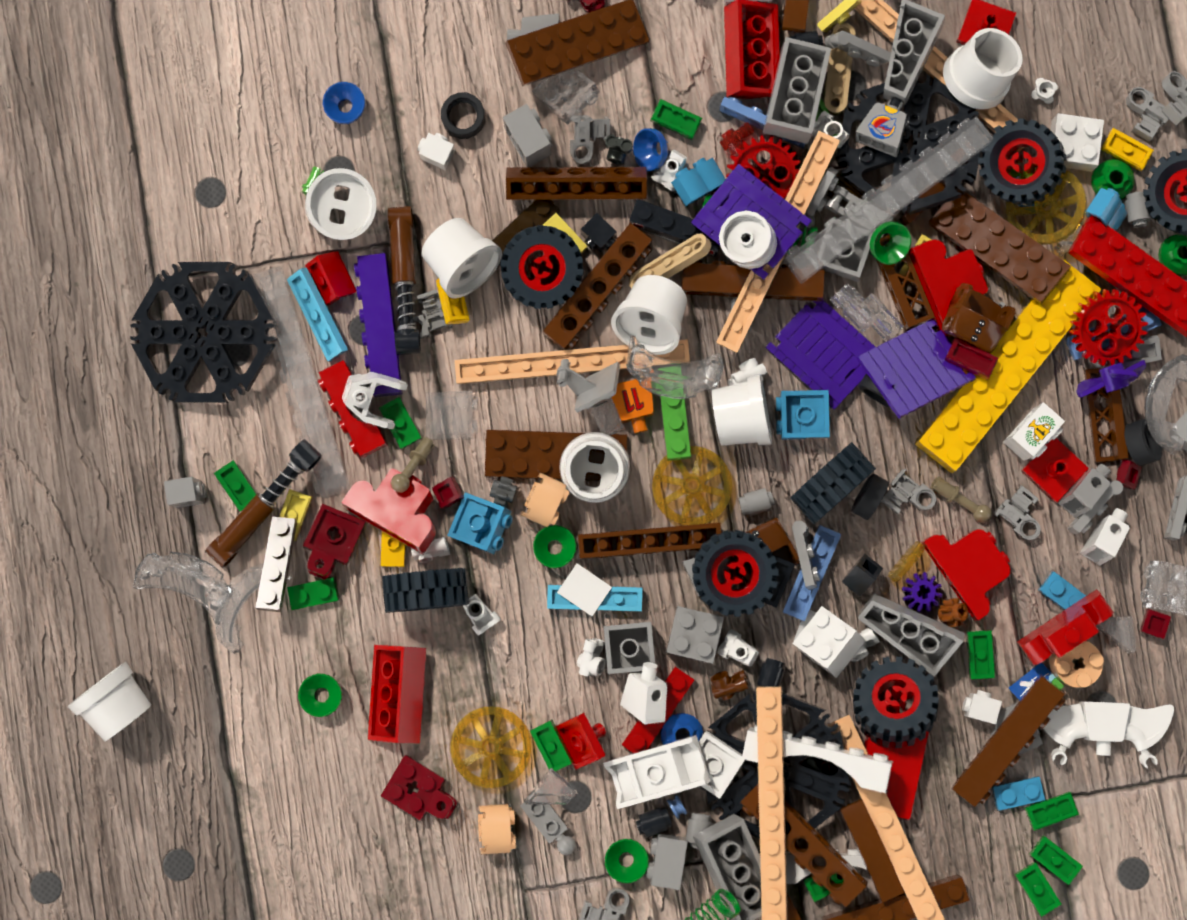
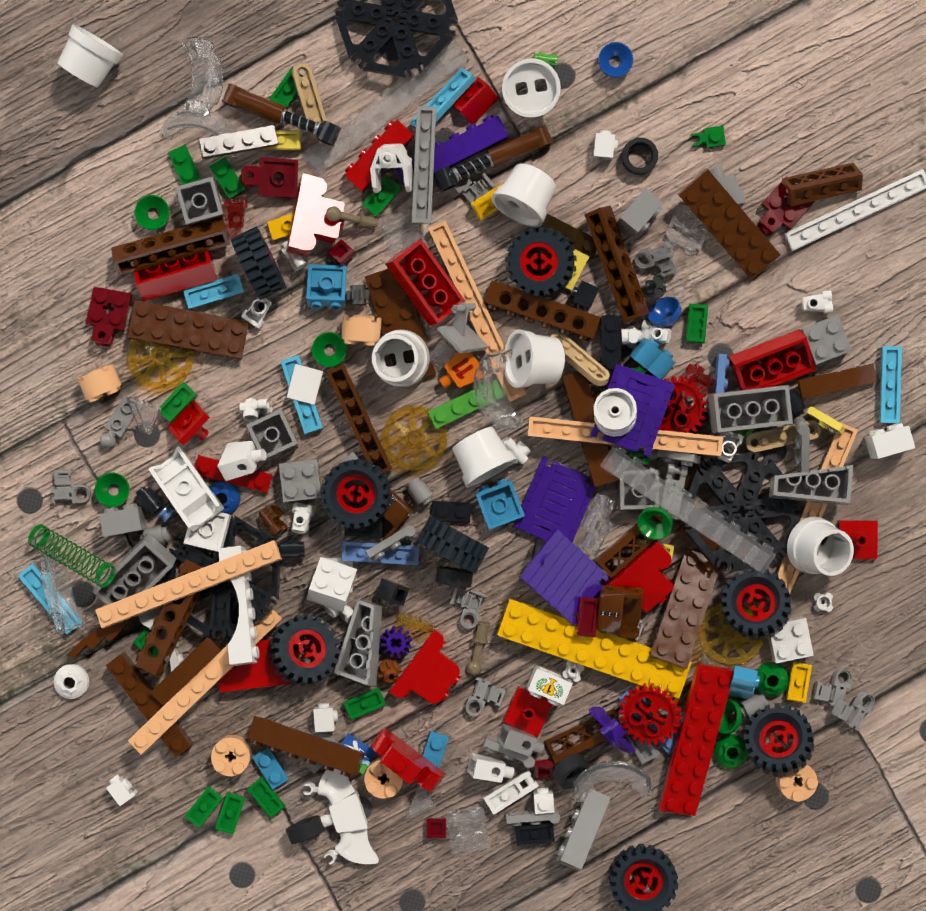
camera: 70 degrees right, 5 degrees up
(185, 492) = (267, 51): light grey brick -> none
(252, 463) = (308, 94): none -> tan plate
(280, 638) = (184, 165): none -> green plate
(328, 633) = (200, 201): none -> light grey brick
(351, 595) = (235, 207): none -> clear red plate
(367, 688) = (170, 246): none -> reddish brown brick
(383, 359) = (424, 165): none -> light grey plate
(438, 657) = (213, 291): none -> medium azure plate
(471, 28) = (712, 137): none -> green plate
(471, 703) = (188, 330): none -> reddish brown plate
(517, 407) = (425, 282): none -> red slope
(665, 196) = (630, 336): none -> white plate
(791, 473) = (451, 511): none -> black plate
(883, 127) = (745, 486): light grey torso -> none
(991, 847) = (240, 749): none -> light nougat brick
(1019, 402) = (568, 671): none -> white plate
(1106, 778) = (305, 829): none -> black tyre
(1142, 522) = (510, 792): none -> white plate
(1152, 246) = (726, 725): none -> green piece
(1166, 488) = (543, 801): none -> white brick

